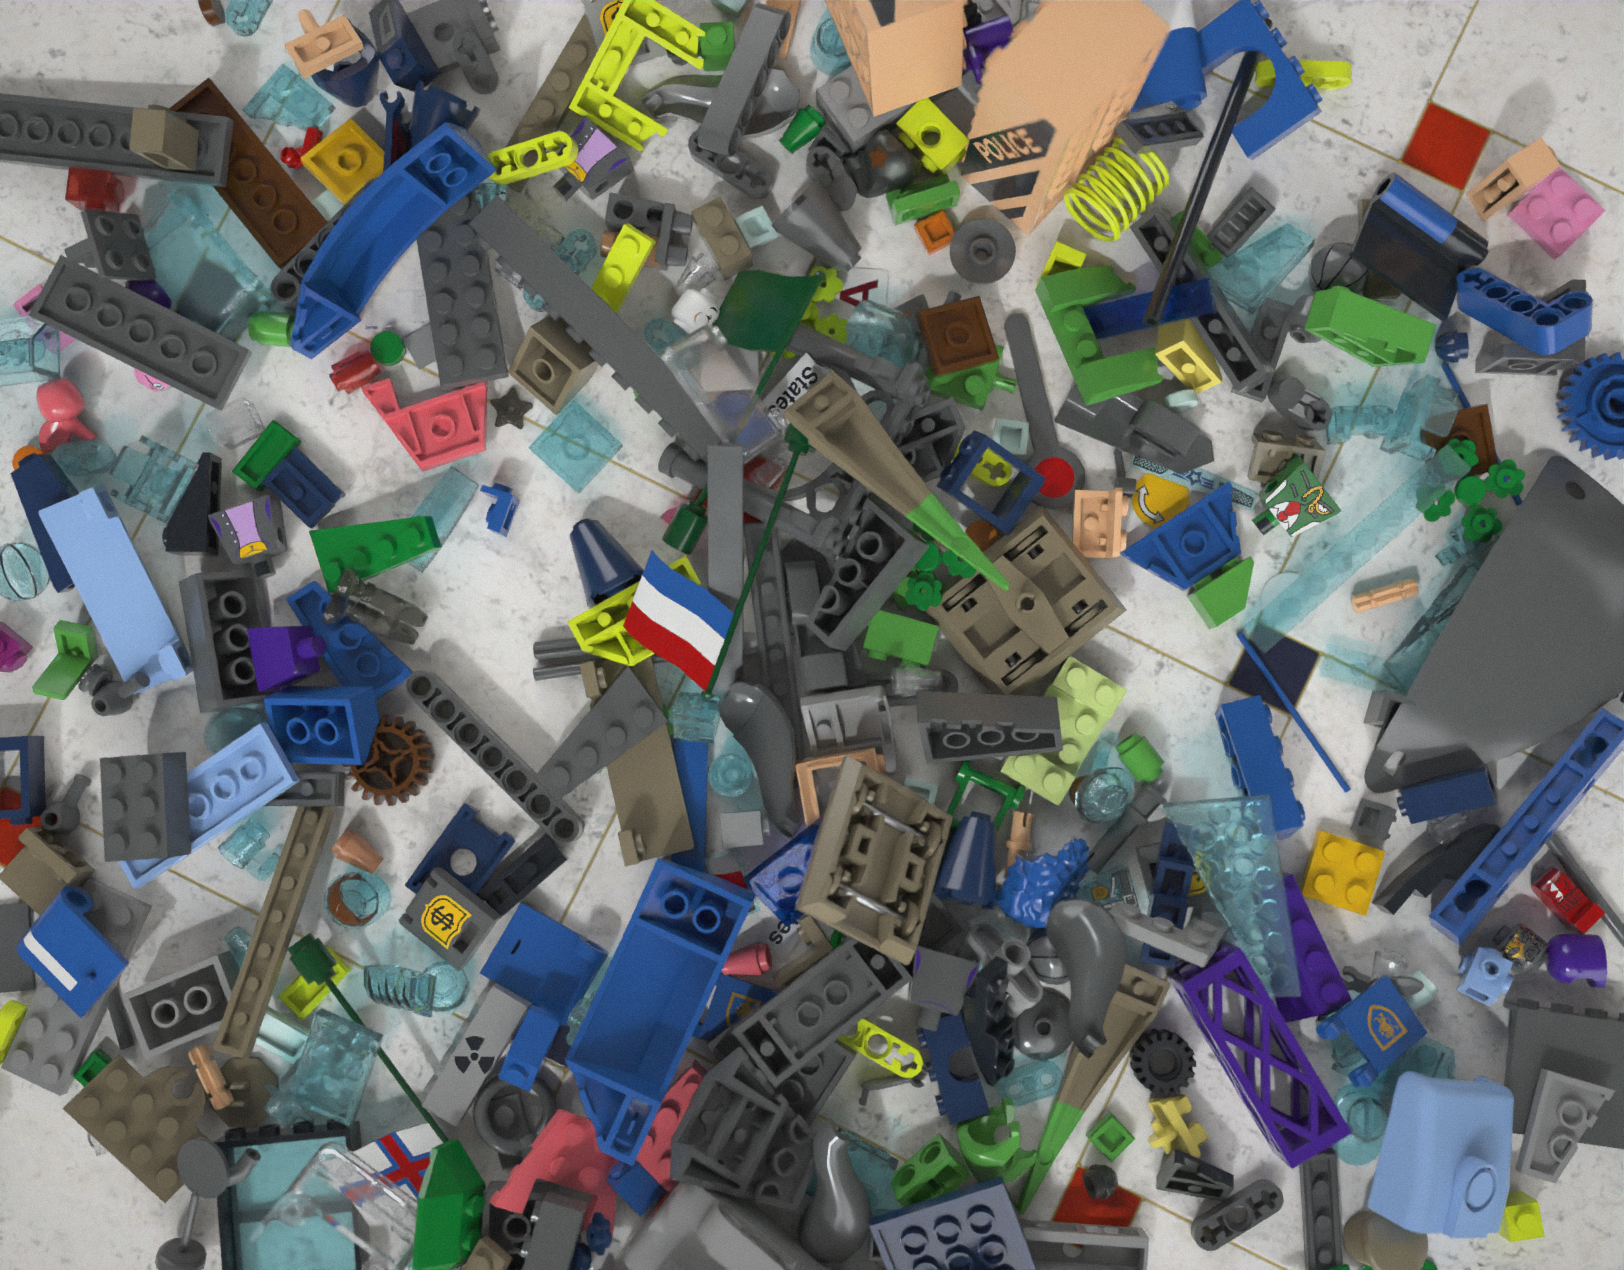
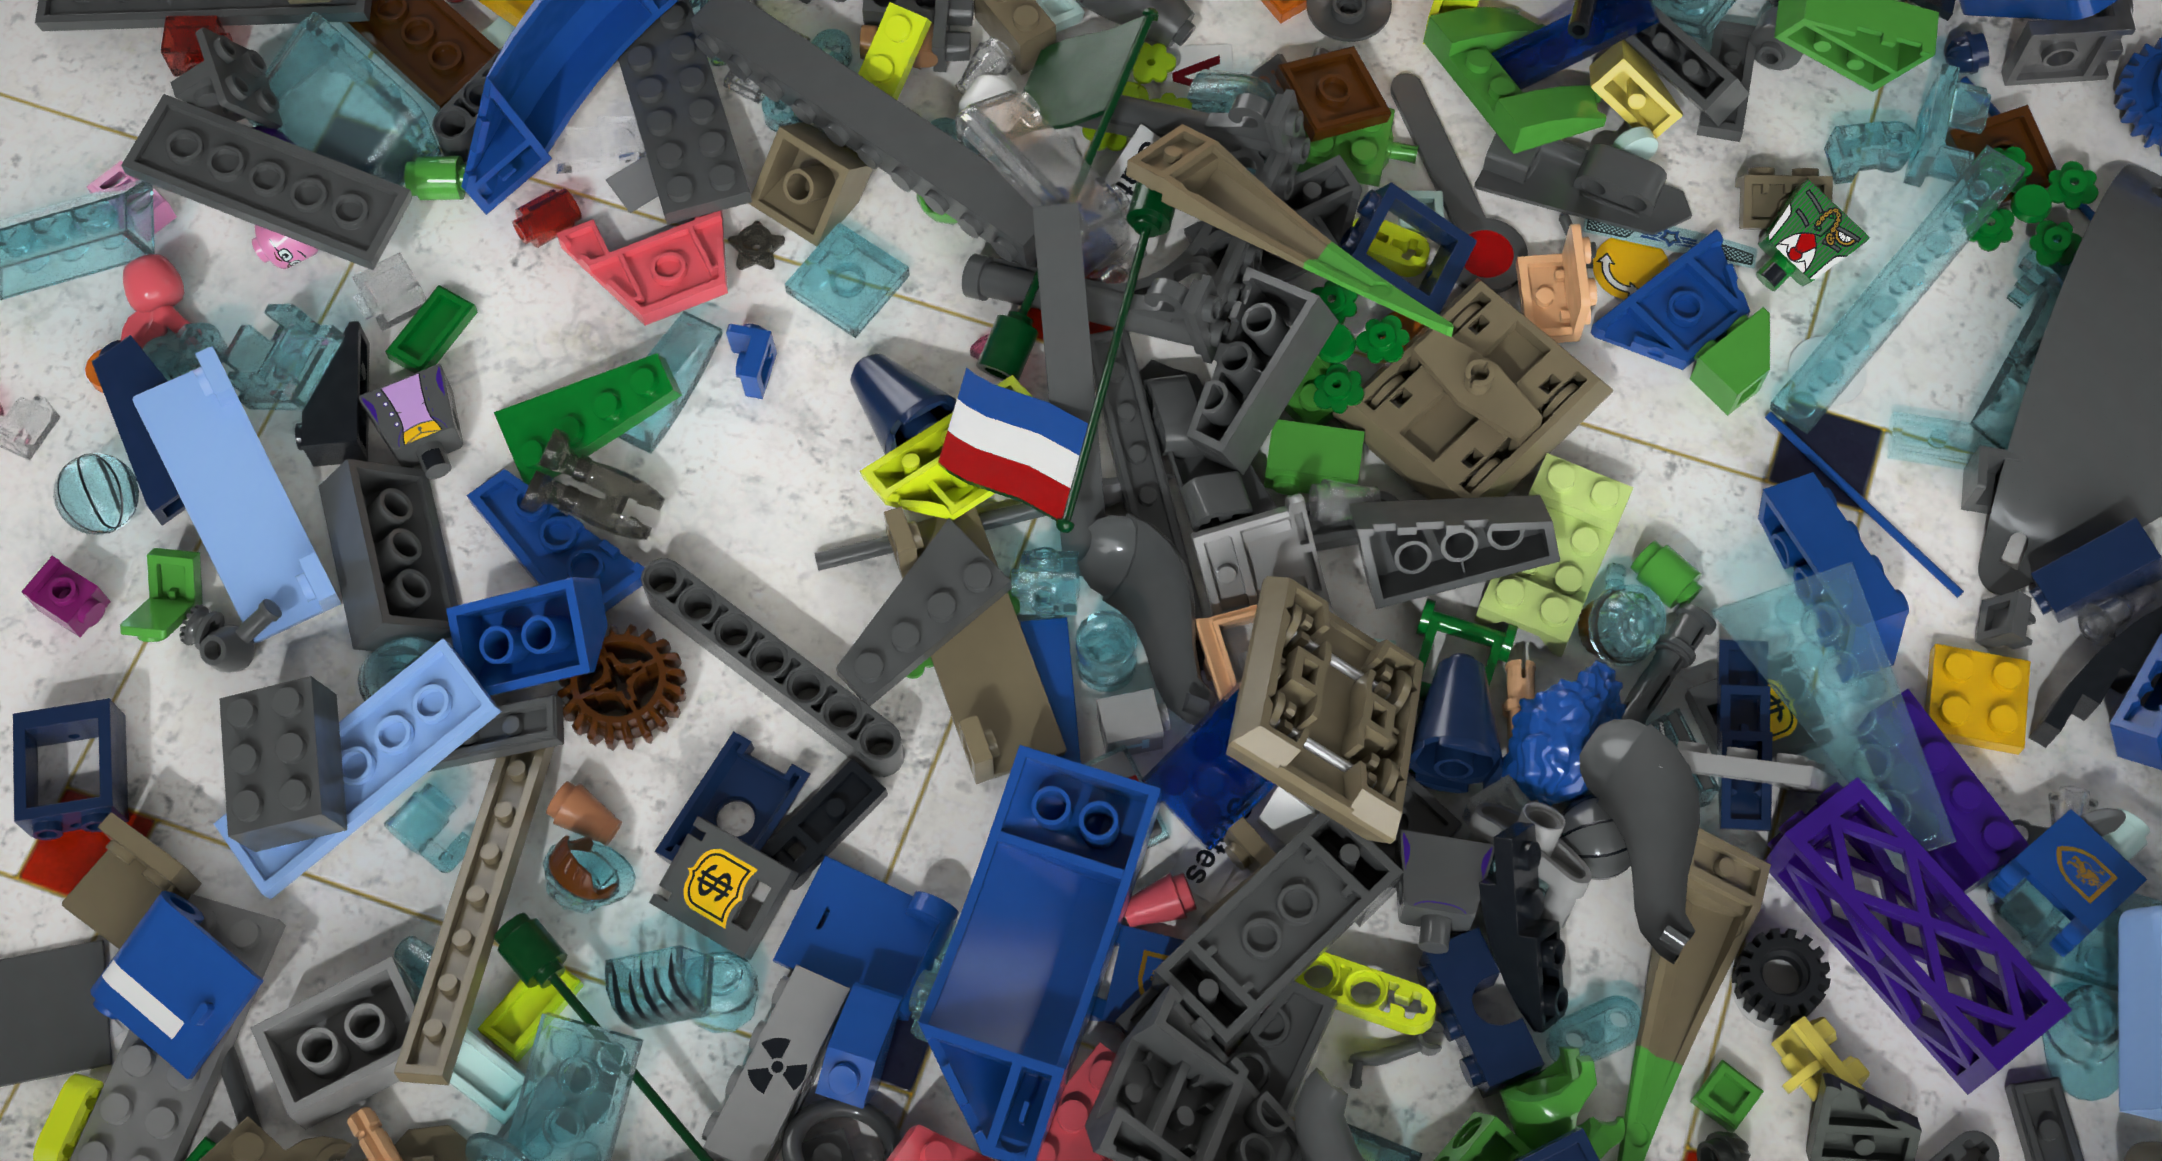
camera: 10 degrees left, 20 degrees down
(66, 810) = (163, 816): dark grey bar -> none
(284, 655) = (471, 557): dark purple torso -> none
(303, 488) = (485, 361): dark blue plate -> none
(387, 348) = (589, 189): green tile -> none
(557, 649) = (850, 523): dark grey axle -> none
(1044, 1045) = (1597, 975): dark grey dish -> none
(1299, 403) = (1795, 137): dark grey piece -> none
(1384, 595) = (1951, 347): light nougat axle -> none

